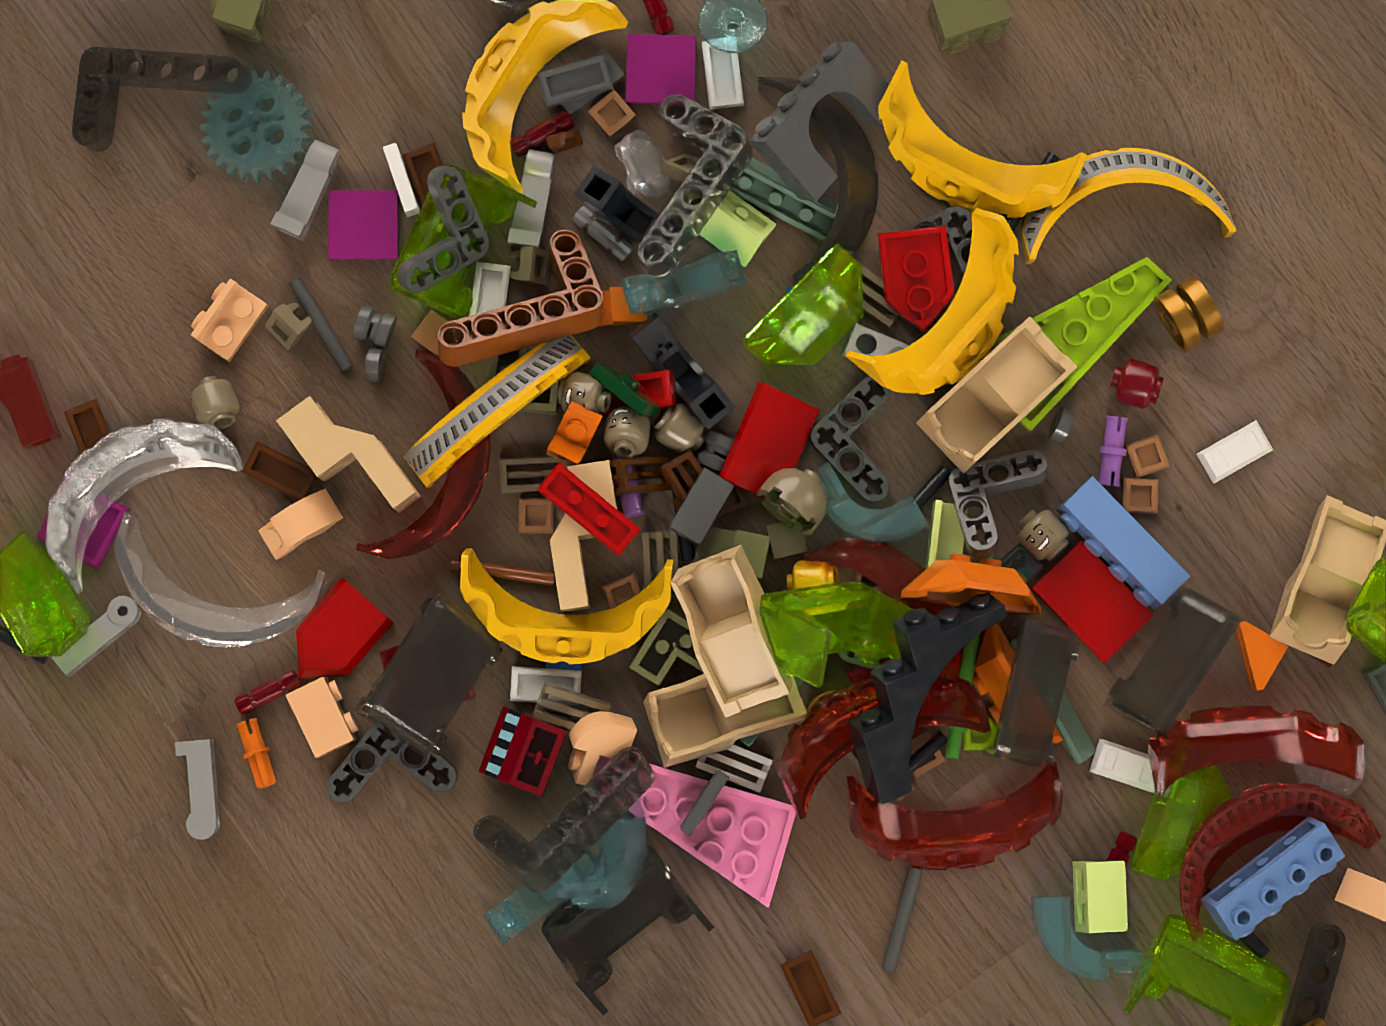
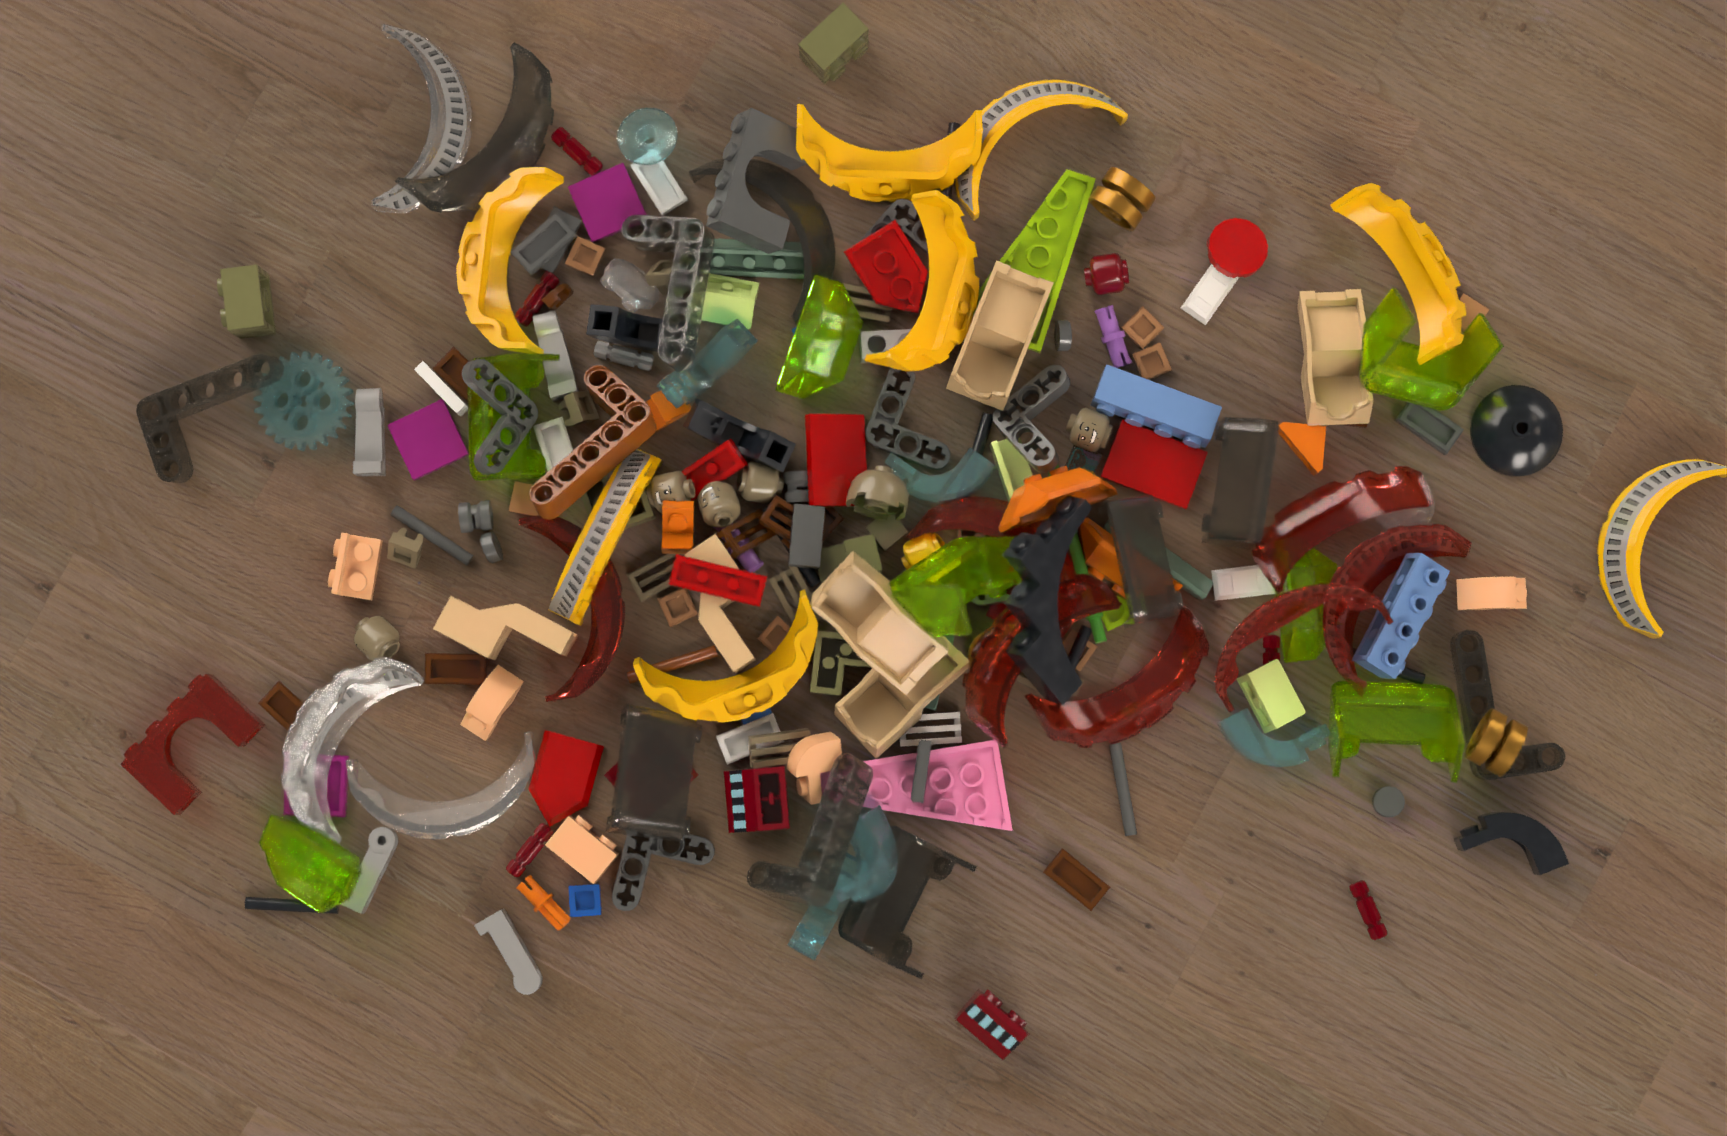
camera: 25 degrees left, 0 degrees up
(299, 770) = (585, 900): none -> blue tile
(625, 388) = (701, 470): dark green plate -> none
(1144, 816) = (1280, 612): none -> clear red windscreen
(1284, 420) = (1237, 248): none -> red tile

